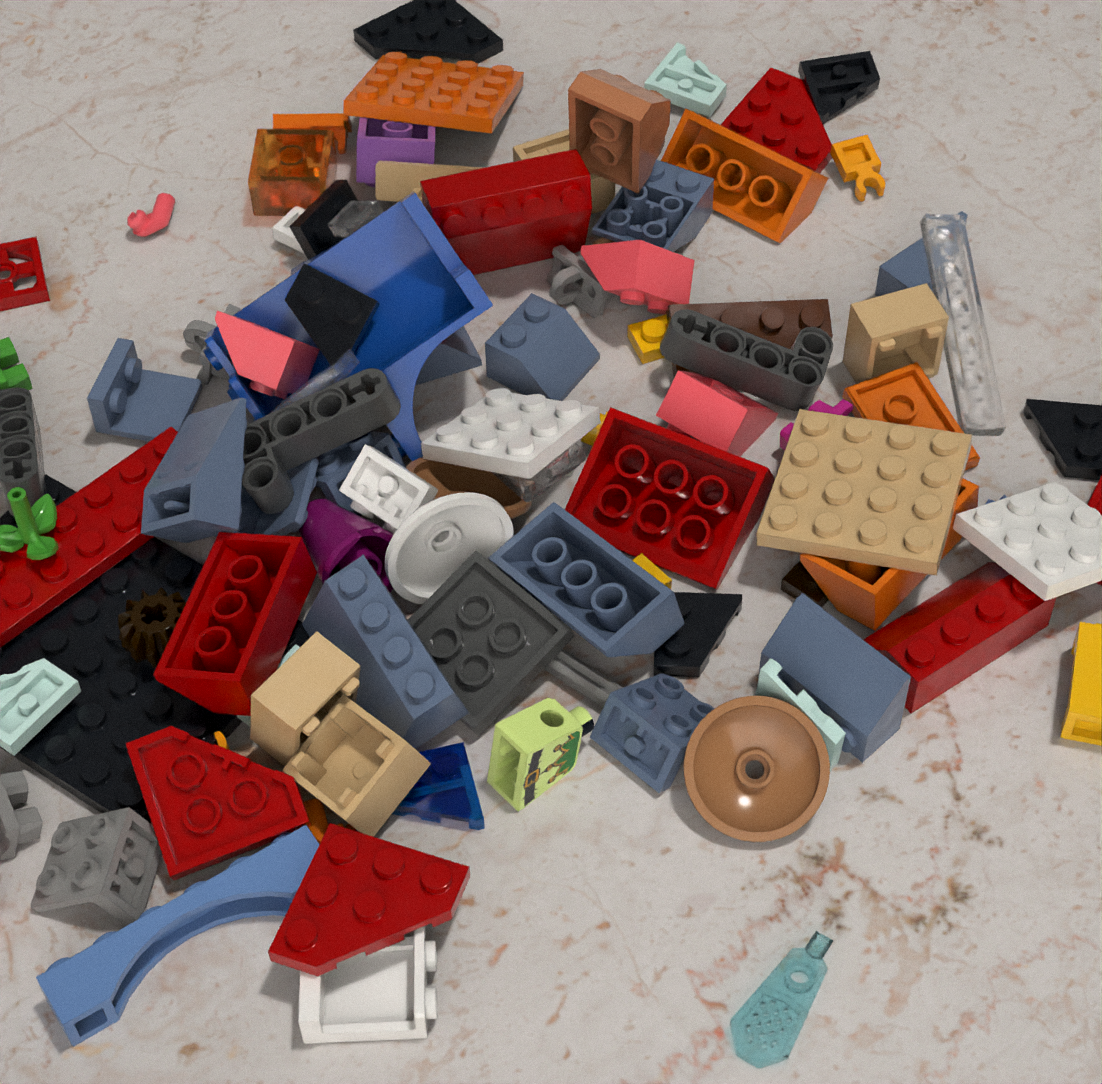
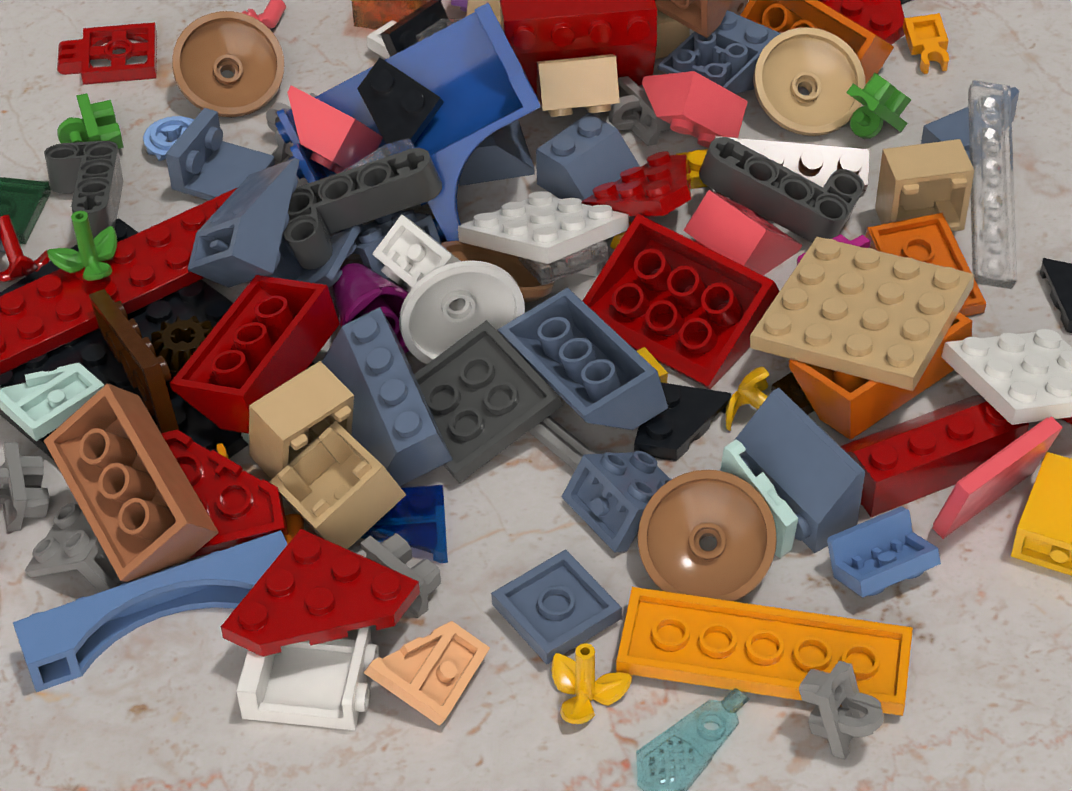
camera: 10 degrees right, 5 degrees down
(76, 362) = (162, 131): none -> light blue gear
(107, 645) = (137, 357): none -> reddish brown wing
(132, 255) = (234, 44): none -> medium nougat dish
(133, 800) = (129, 485): none -> nougat slope
(426, 836) = (395, 554): none -> light grey hips
(499, 961) = (431, 670): none -> light nougat wing
(517, 265) = (578, 83): none -> tan slope
(535, 750) = (506, 497): yellowish green torso -> none
(611, 374) = (647, 189): none -> red plate
(612, 865) = (556, 606): none -> sand blue plate
(662, 950) = (579, 679): none -> yellow plant
(762, 594) = (748, 392): none -> yellow plant
(766, 214) = (811, 61): none -> tan dish
(828, 246) = (880, 103): none -> bright green hips
(838, 884) = (758, 646): none -> light orange plate
(931, 942) = (829, 719): none -> light grey hips
(934, 758) = (880, 553): none -> medium blue bracket
(1036, 657) = (996, 477): none -> coral tile

